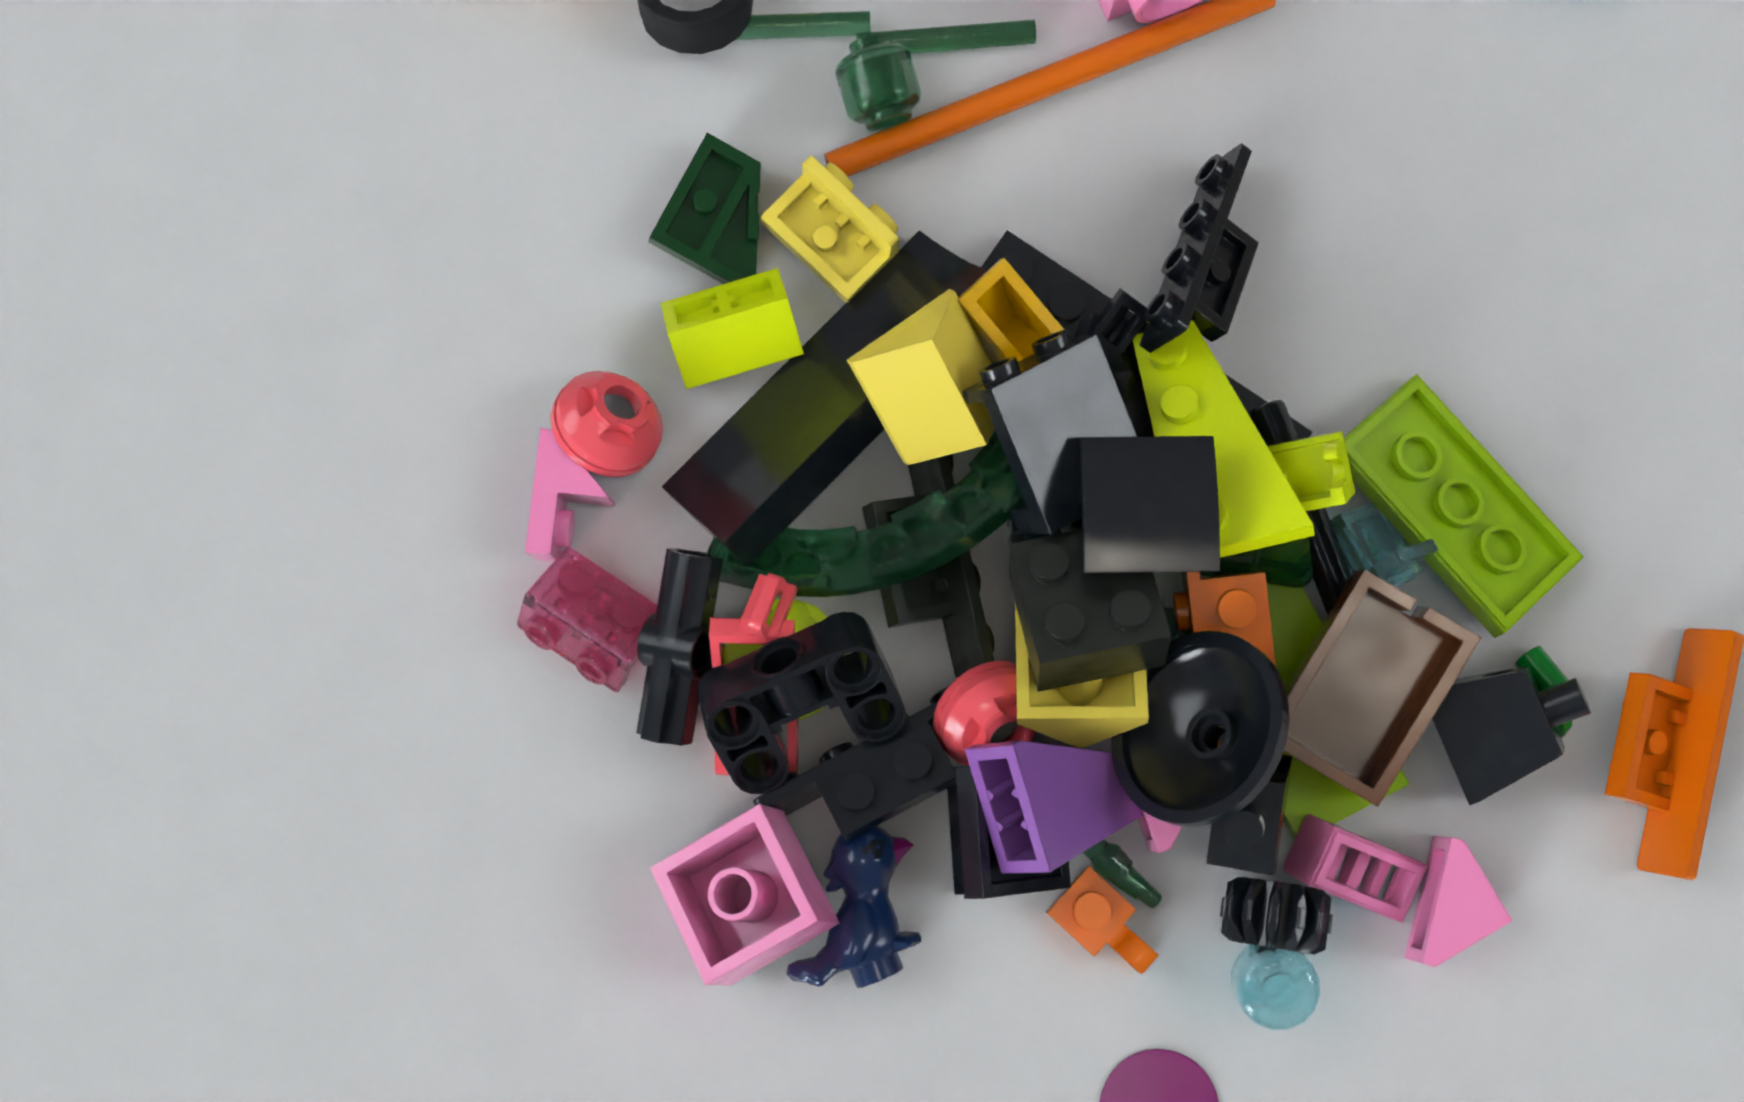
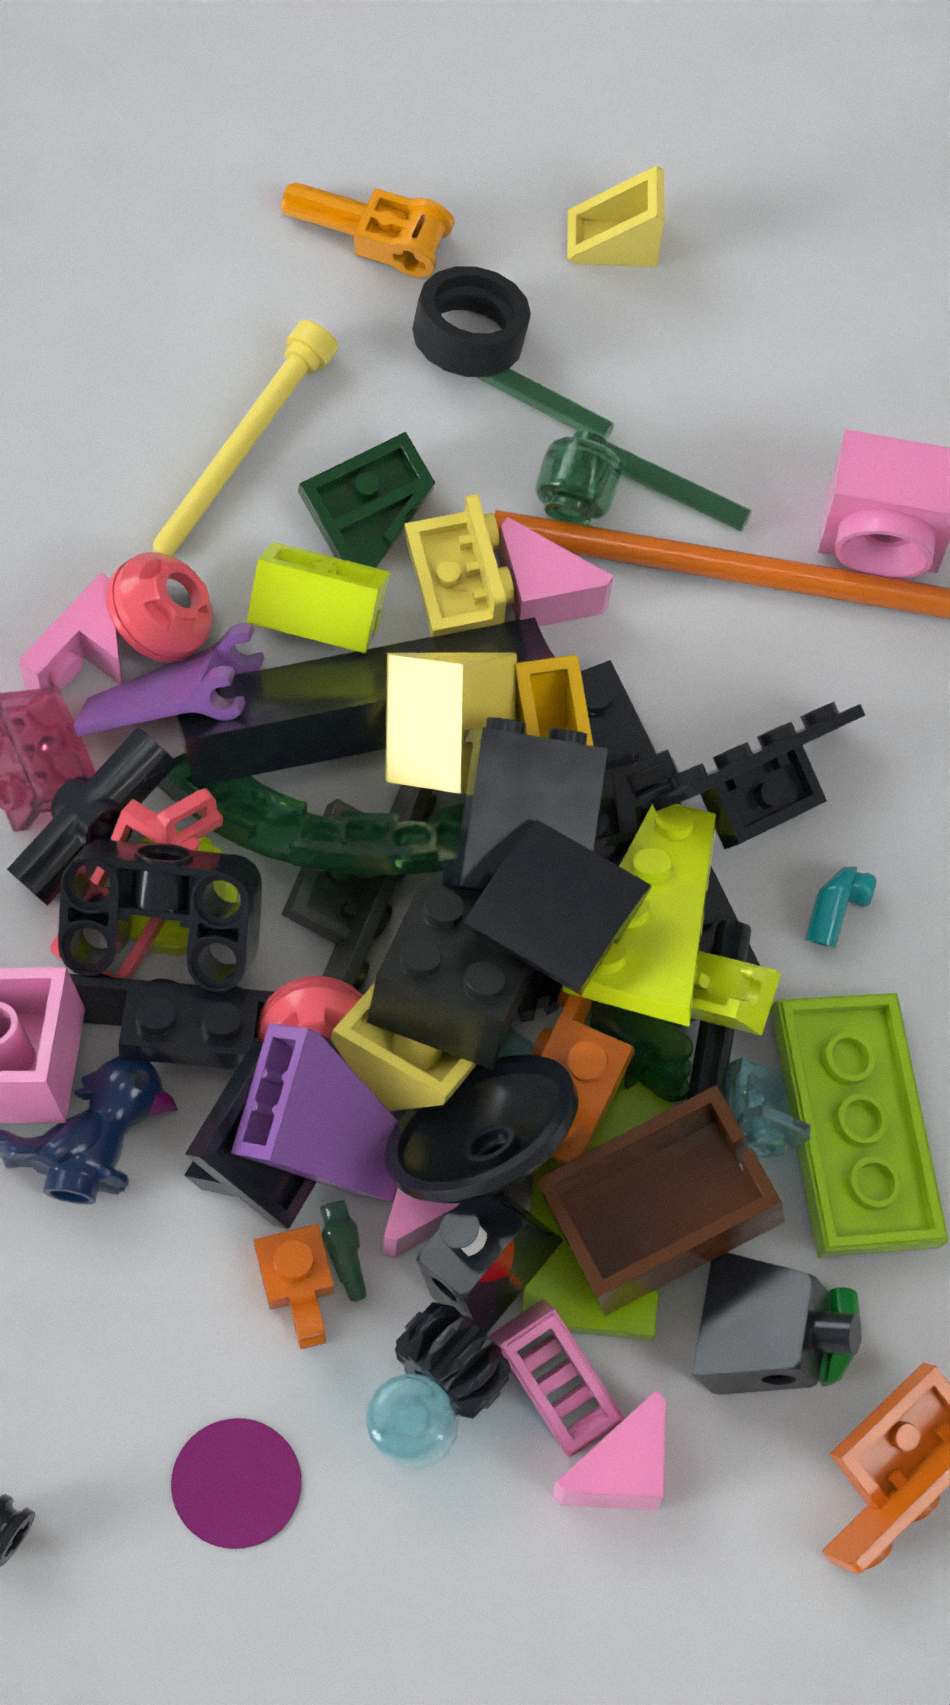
camera: 30 degrees right, 15 degrees down
(570, 105) = (307, 349): none -> light yellow piece
(669, 489) = (175, 688): none -> medium lavender flag
(910, 189) = (550, 579): none -> bright pink slope
(1319, 329) = (832, 903): none -> teal arm

